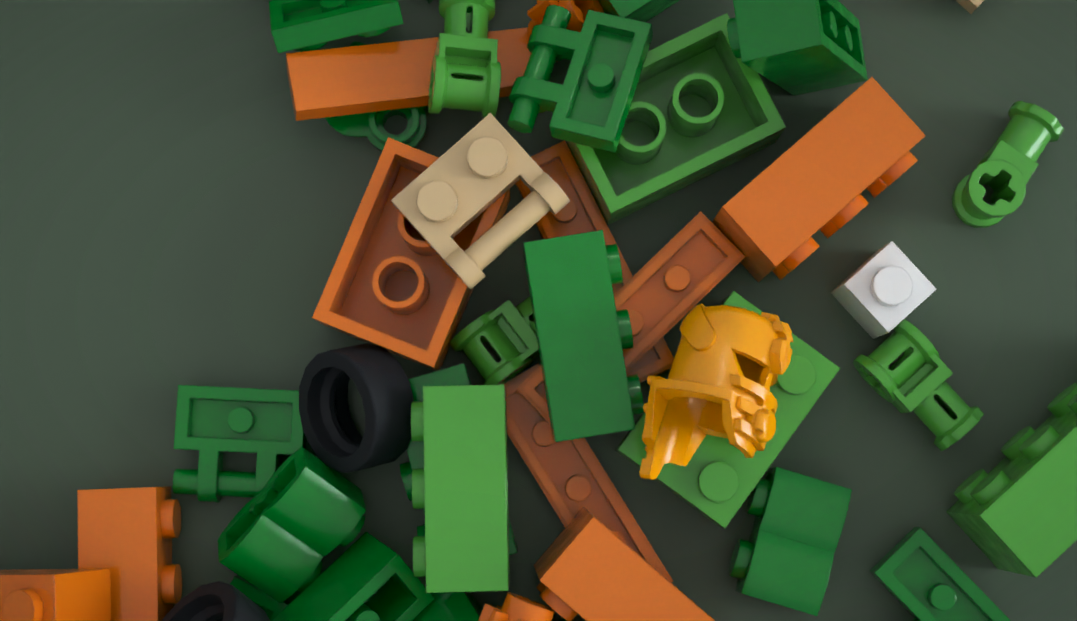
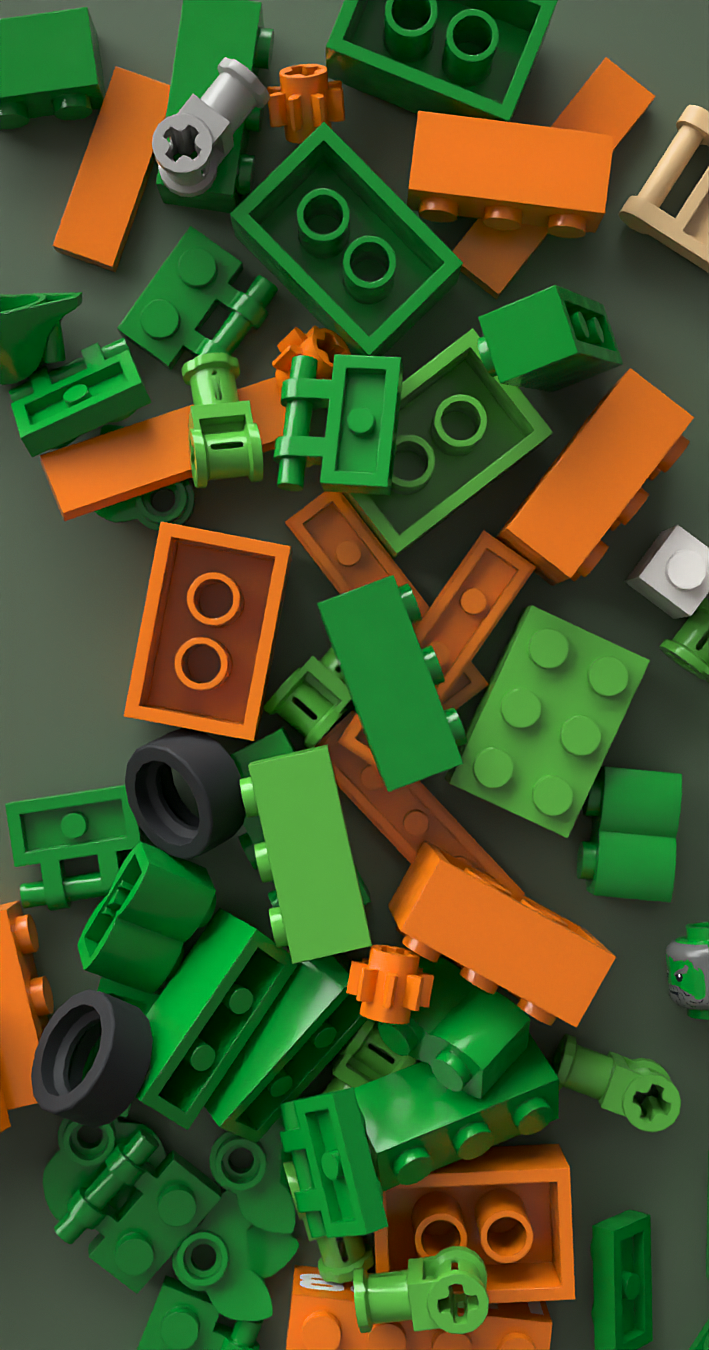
camera: 15 degrees left, 5 degrees up
(465, 185) = (249, 553): tan plate -> none
(716, 386) = (536, 707): light orange helmet -> none

